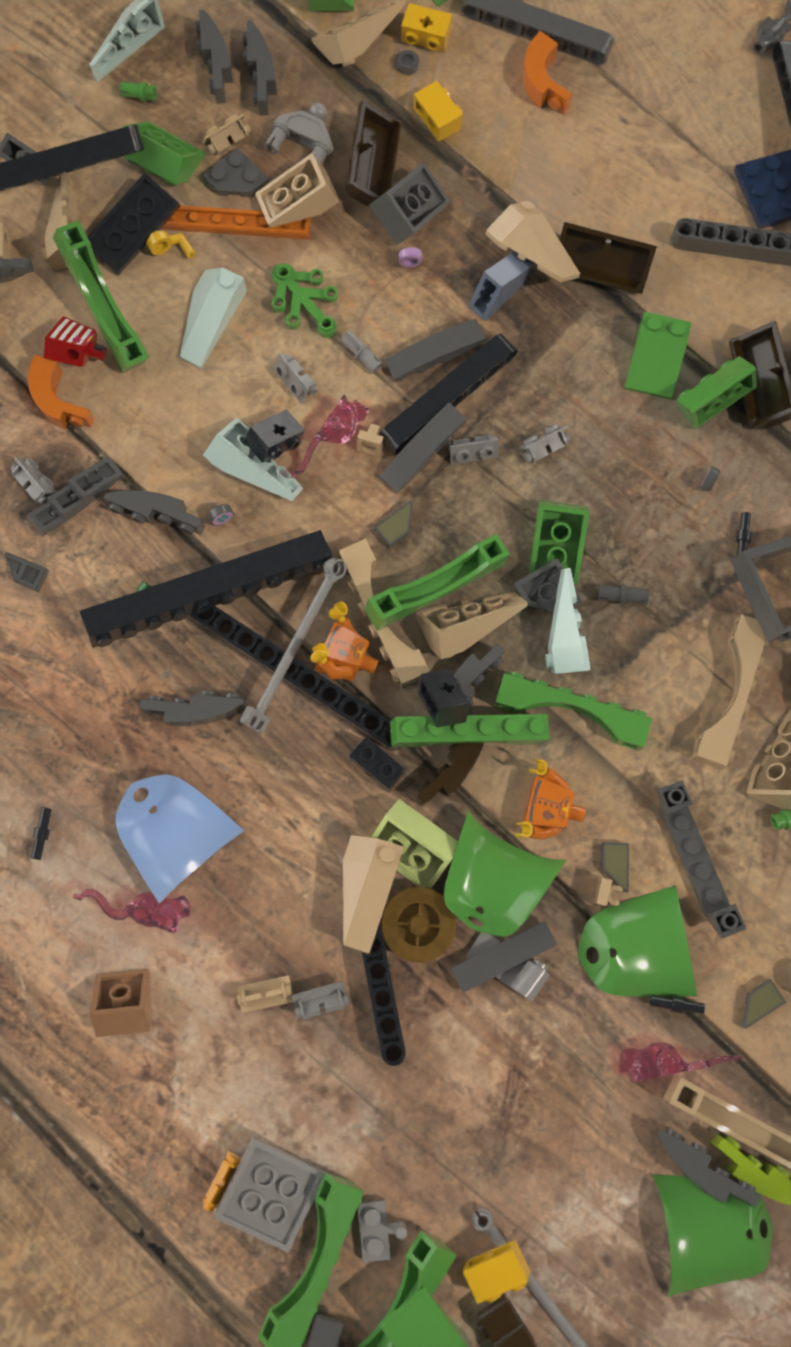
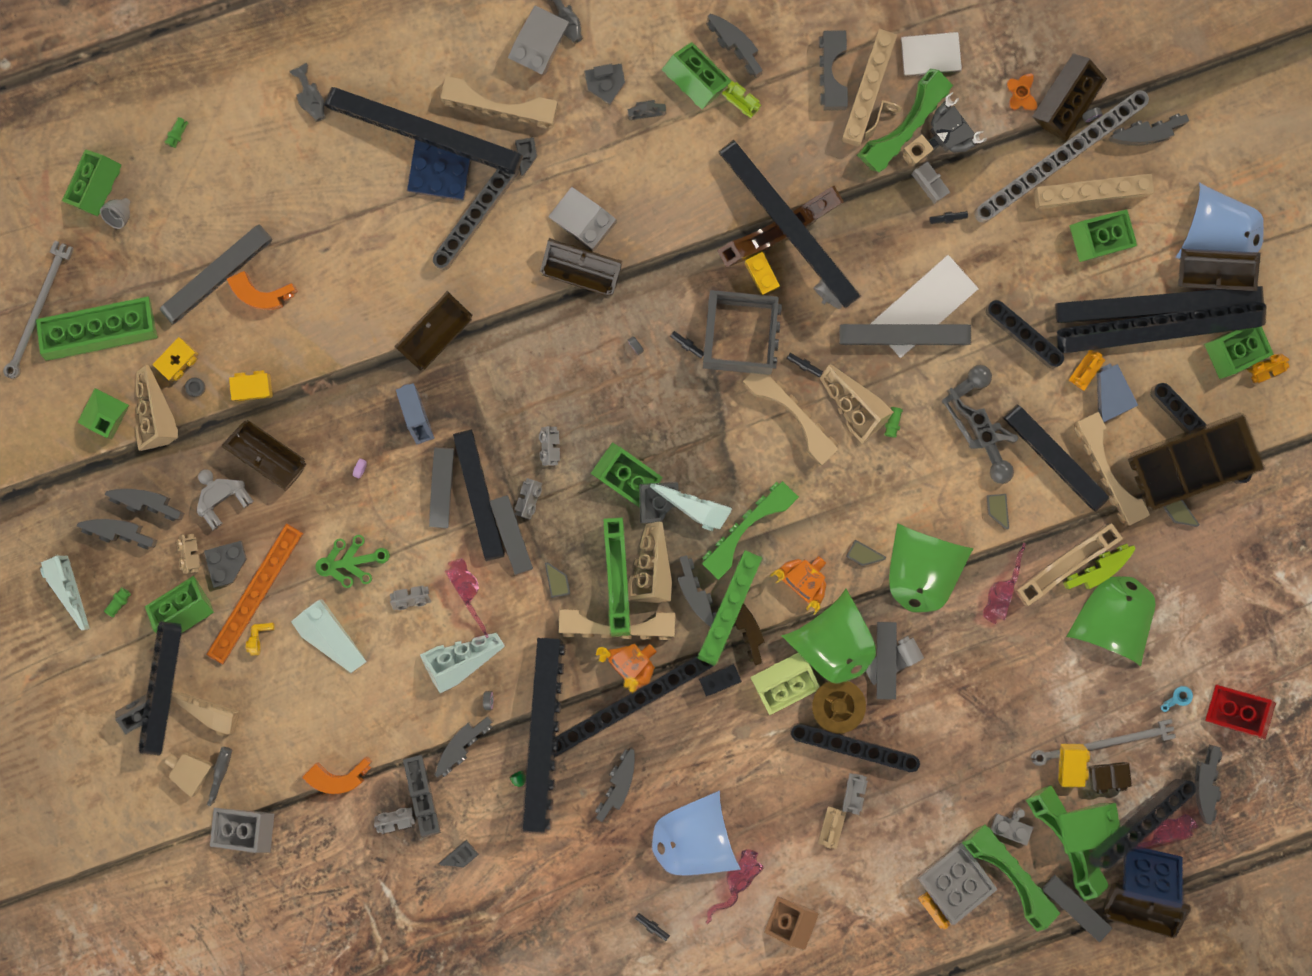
camera: 60 degrees left, 10 degrees up
(72, 343) = (306, 745): red torso -> none
(81, 262) = (282, 712): bright green arch -> none
(131, 222) = (228, 659): black tile -> none
(255, 717) = (649, 747): light grey hinge -> none
(274, 436) = (451, 645): black brick -> none
(297, 193) = (268, 526): tan slope -> none
(362, 352) = (415, 540): light grey axle -> none
(367, 880) = (794, 725): tan wedge -> none
(370, 441) = (487, 569): tan tile -> none
(410, 203) = (319, 448): dark grey slope -> none
(444, 698) = (702, 616): black brick -> none
(530, 235) = (391, 377): tan wedge -> none
(603, 893) = (878, 573): tan tile -> none
(622, 594) = (686, 451): dark grey pin -> none
(657, 355) = (526, 331): bright green slope -> none
(677, 1004) = (972, 564): black bar -> none
(694, 1163) = (1072, 608): dark grey slope -> none
(697, 862) = (889, 500): dark grey slope -> none
(717, 391) = (576, 309): bright green slope -> none

